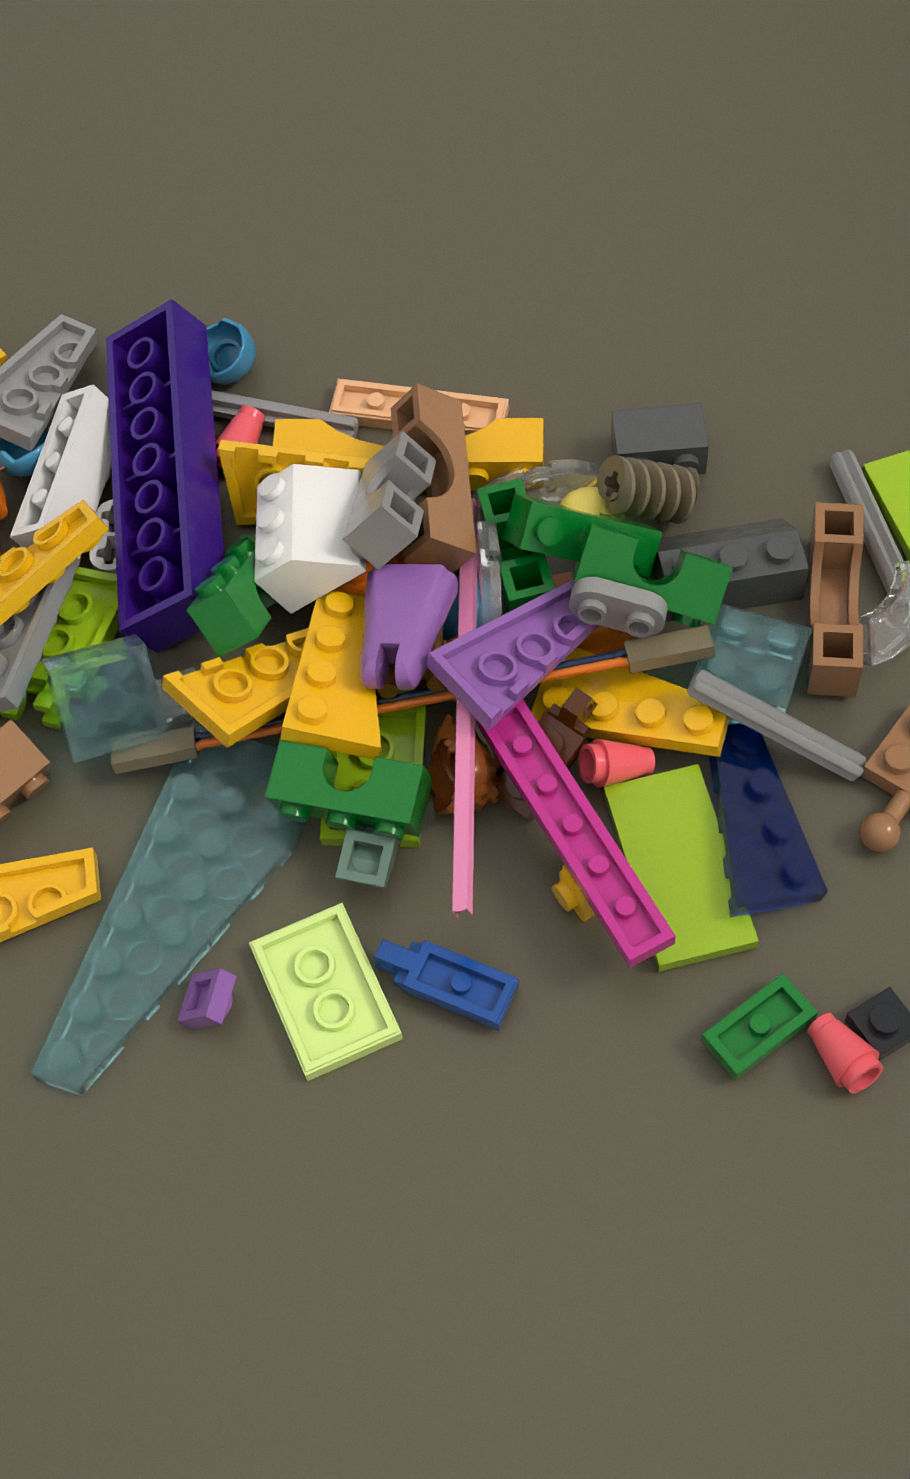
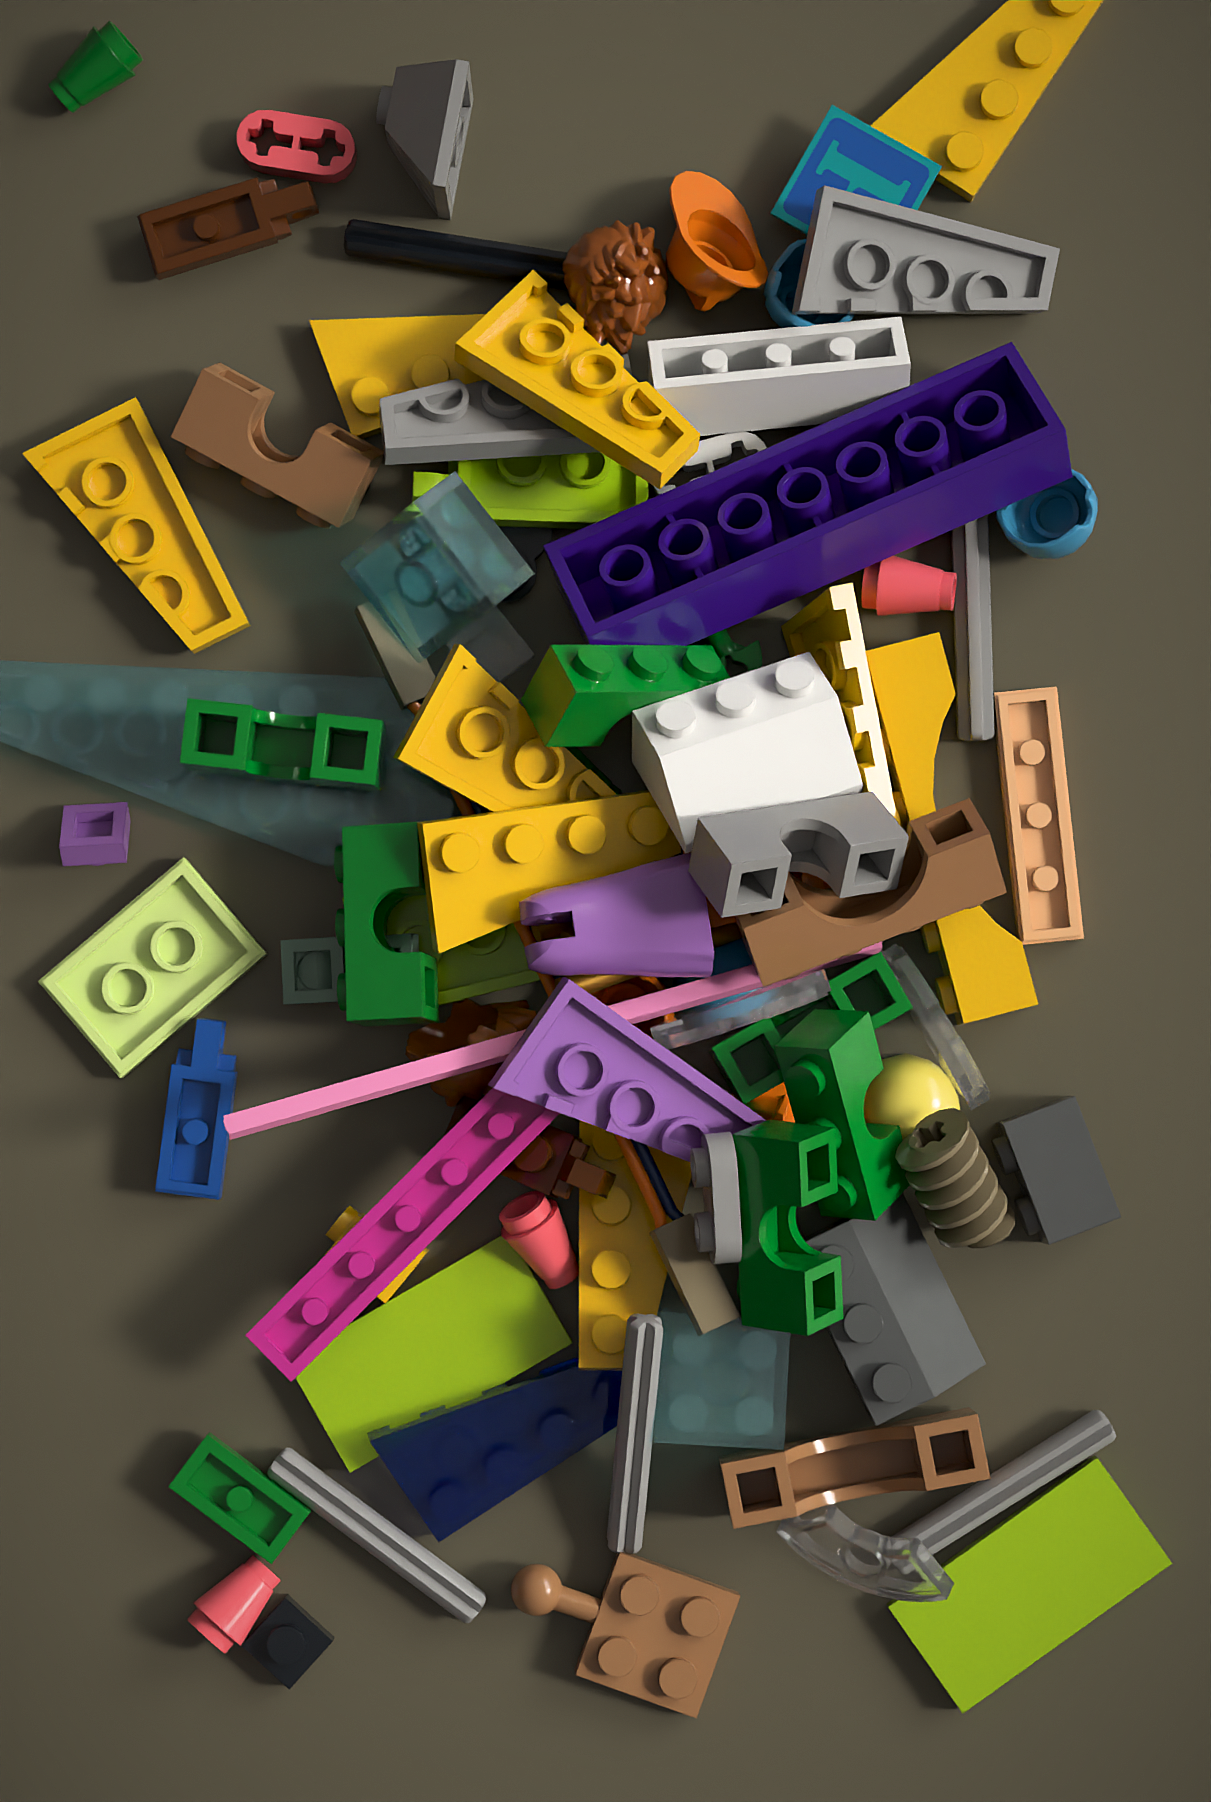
camera: 65 degrees right, 25 degrees up
(174, 859) = (283, 746): none -> green arch
(813, 935) = (377, 1535): none -> light grey axle

